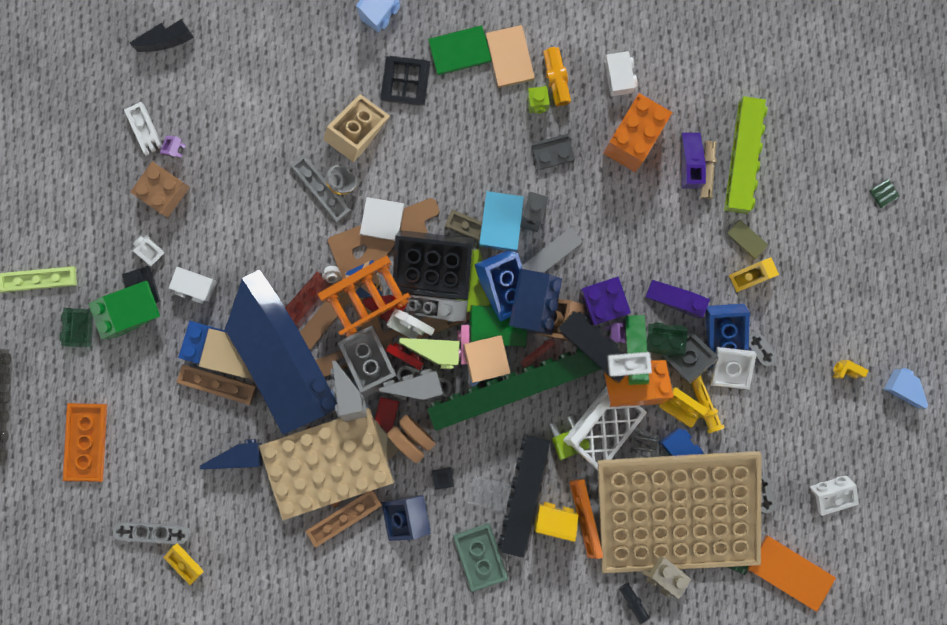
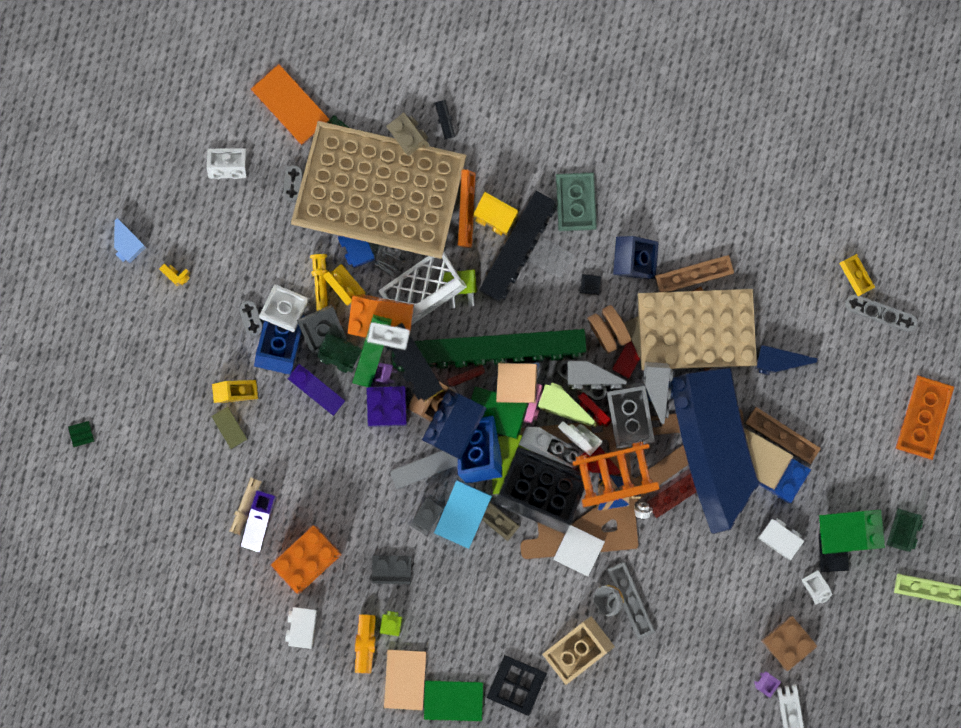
camera: 165 degrees left, 0 degrees up
(745, 155) = (205, 510): lime brick -> none

